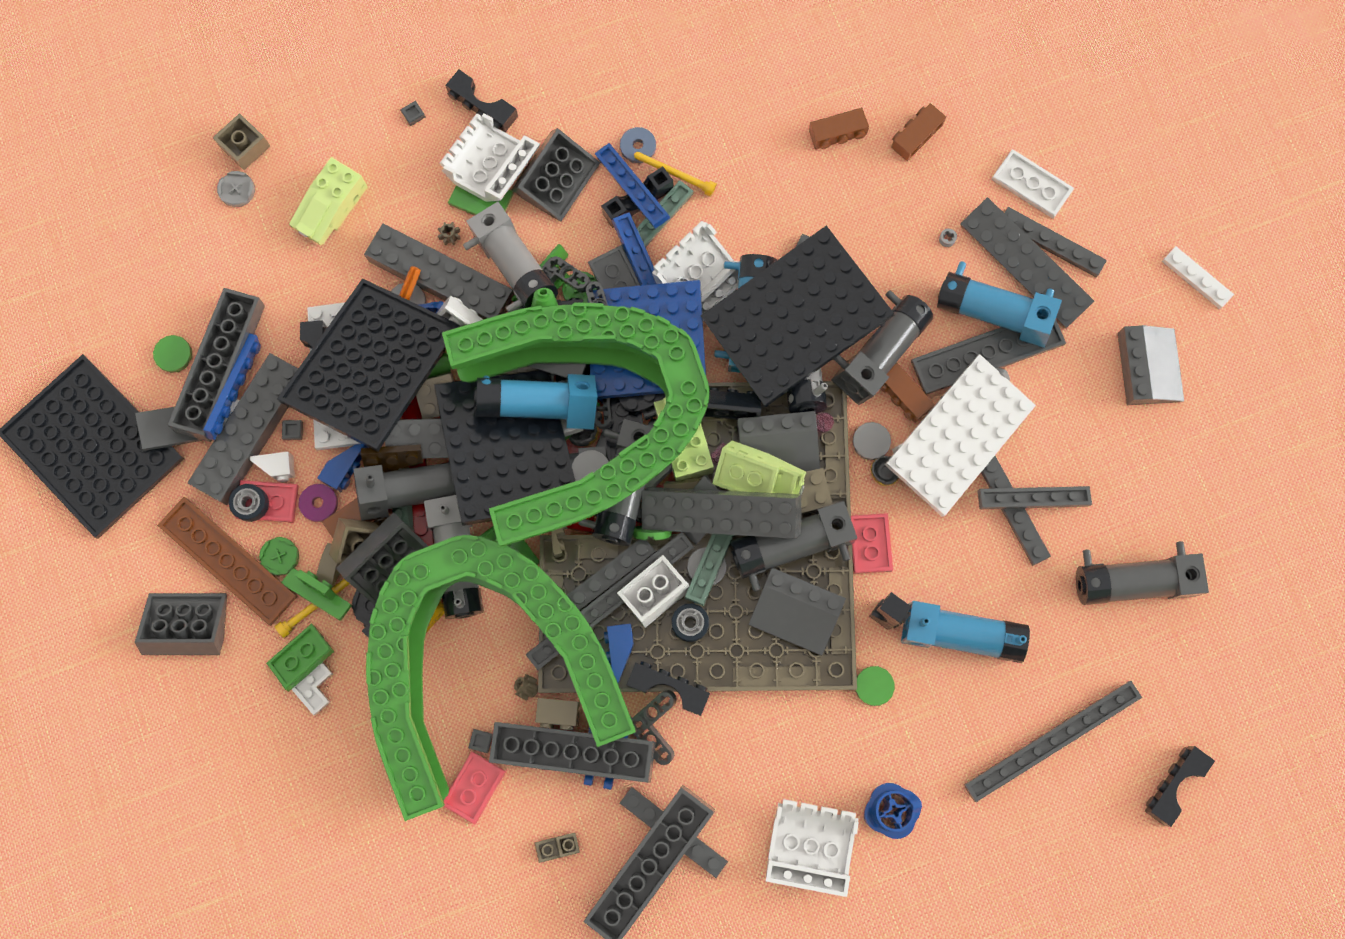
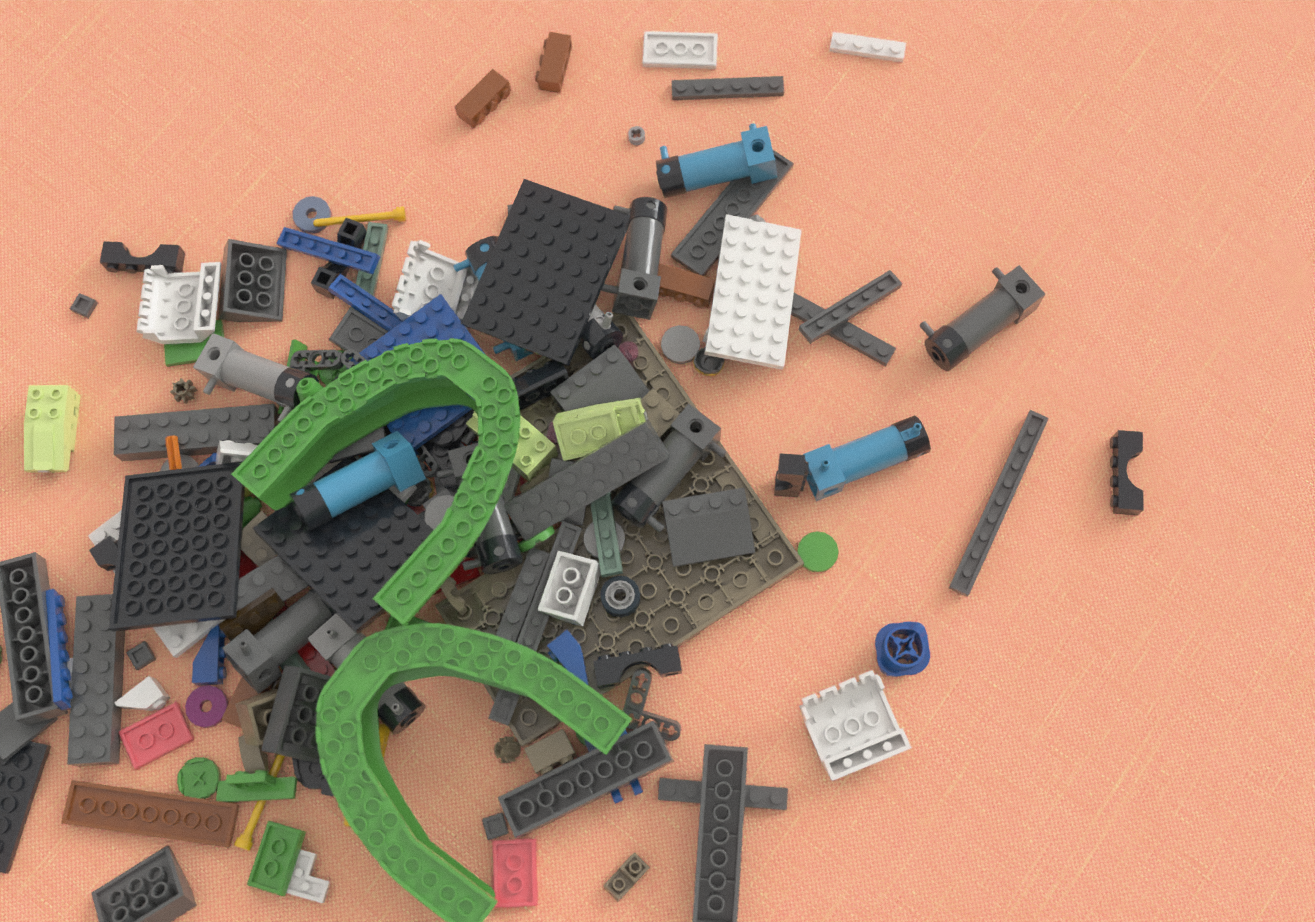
camera: 30 degrees left, 5 degrees down
(238, 500) = (127, 746): wheel -> none
(873, 546) = (738, 432): coral tile -> none
(1025, 259) = (713, 114): dark grey plate -> none
(1150, 365) = (875, 140): slope -> none

